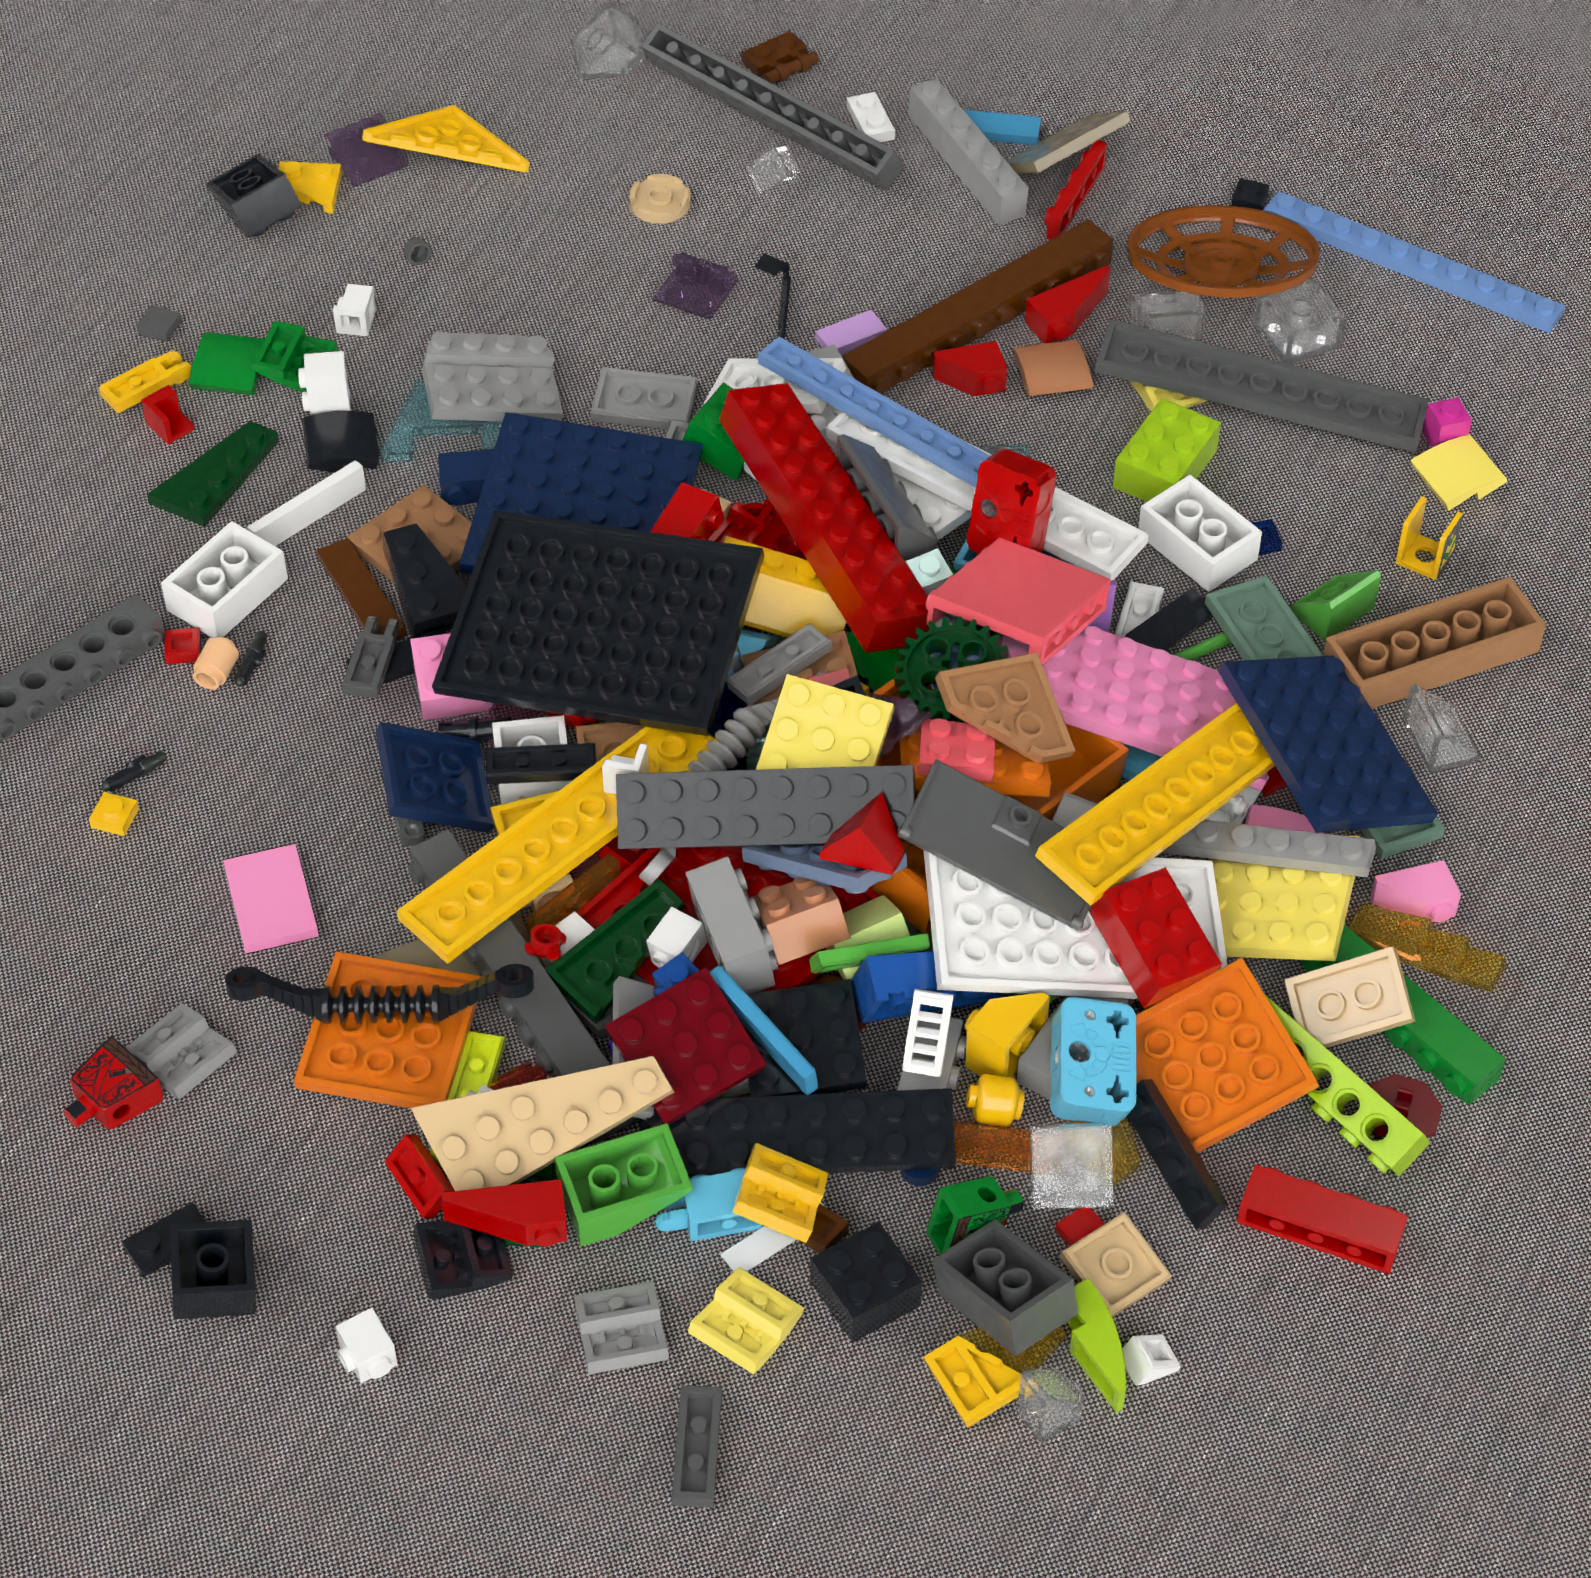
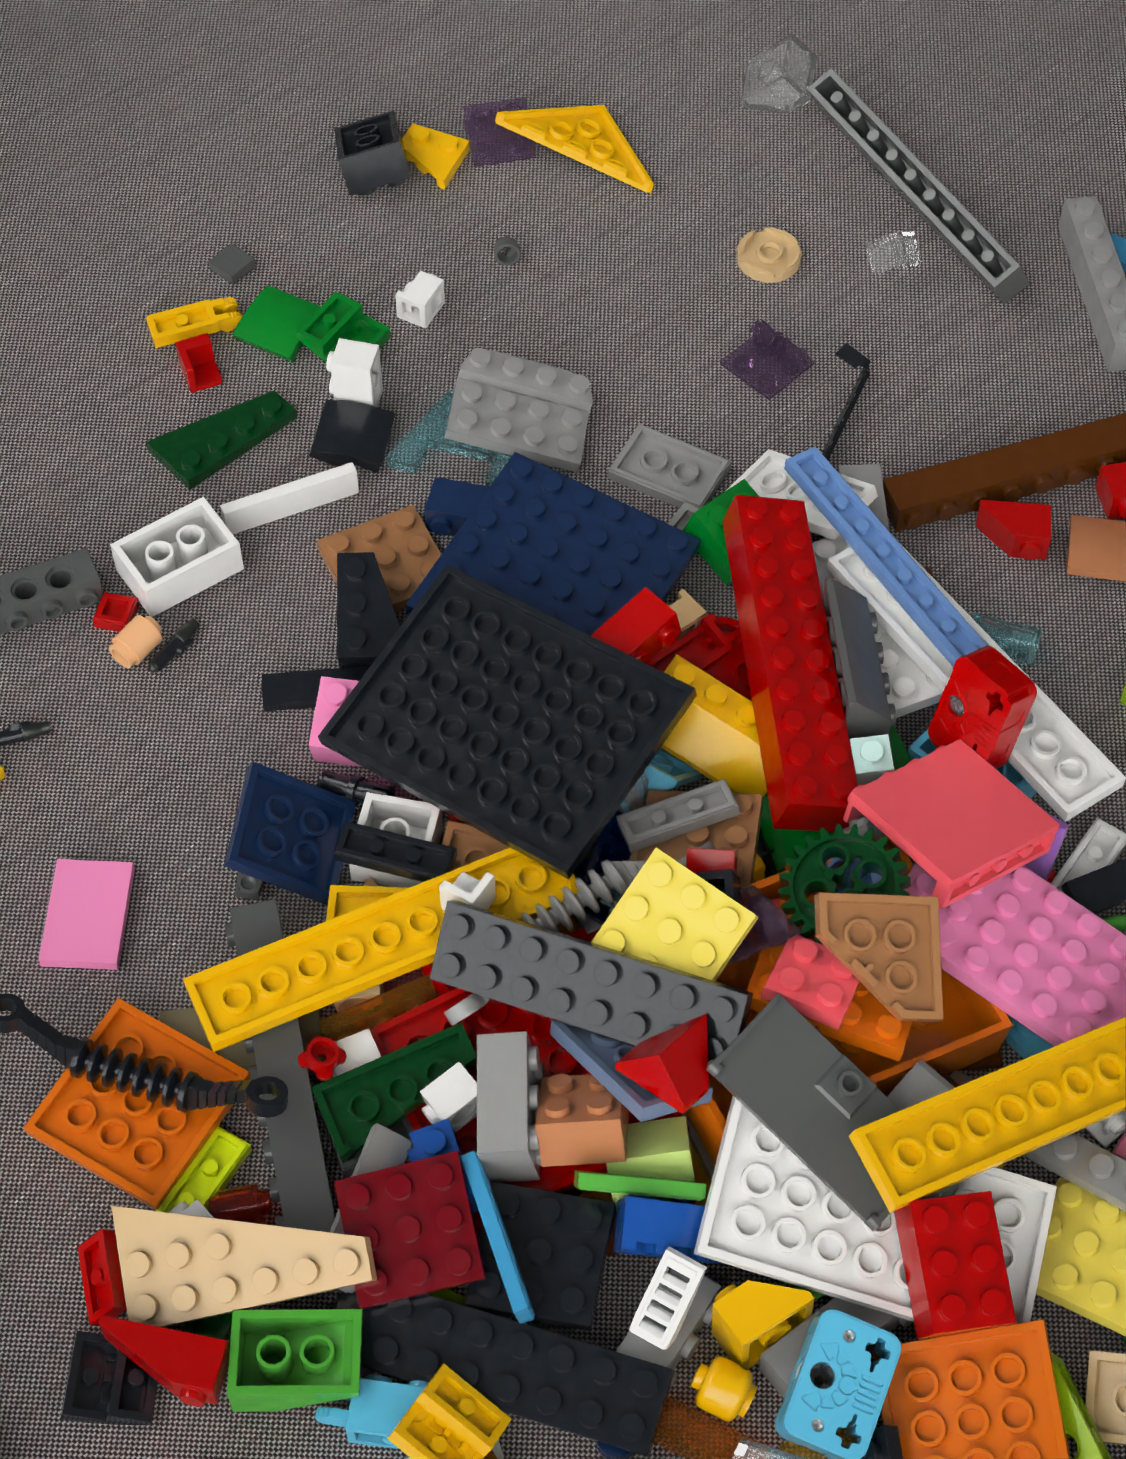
camera: 20 degrees right, 5 degrees up
(357, 585) = (307, 604): reddish brown tile -> none
(370, 659) = (283, 681): dark grey hinge -> none
(779, 58) = (947, 132): reddish brown plate -> none
(851, 332) = (907, 453): lavender tile -> none
(870, 117) = (1016, 221): white plate -> none

